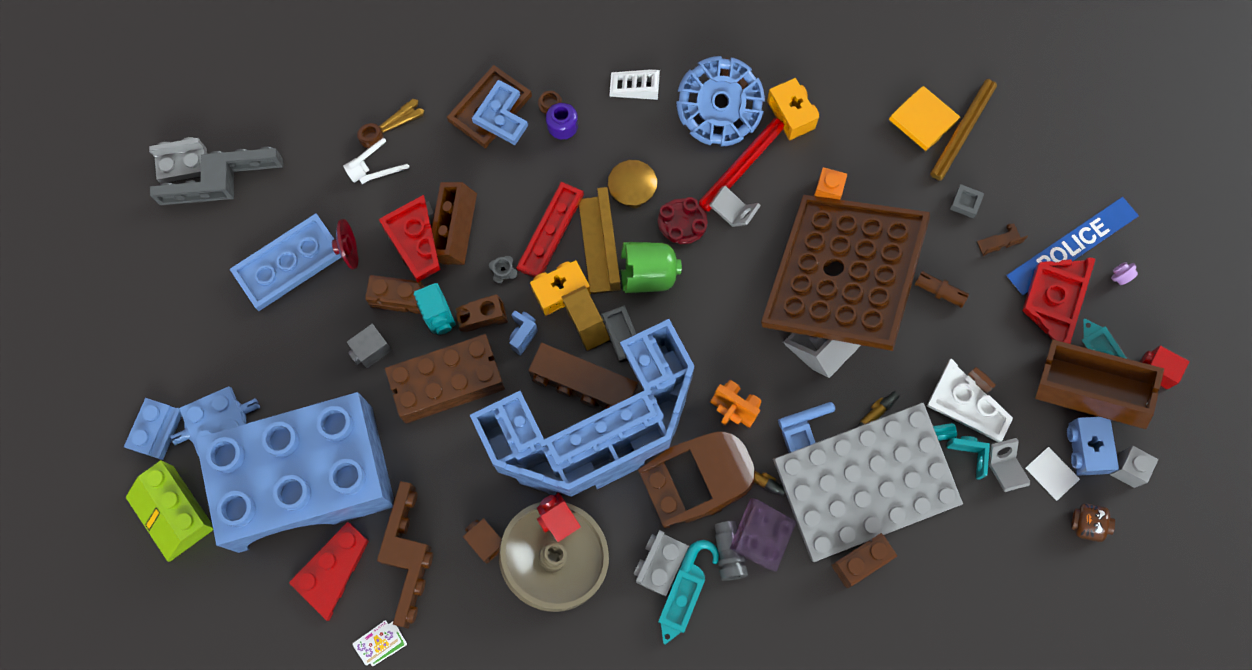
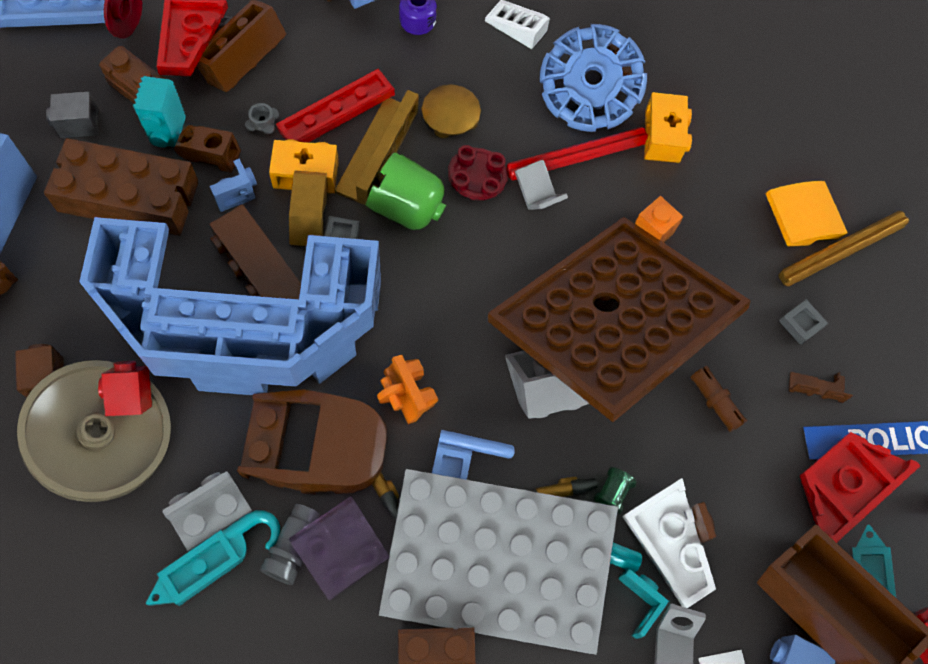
camera: 20 degrees right, 5 degrees down
(912, 391) = (615, 488): none -> clear green bush

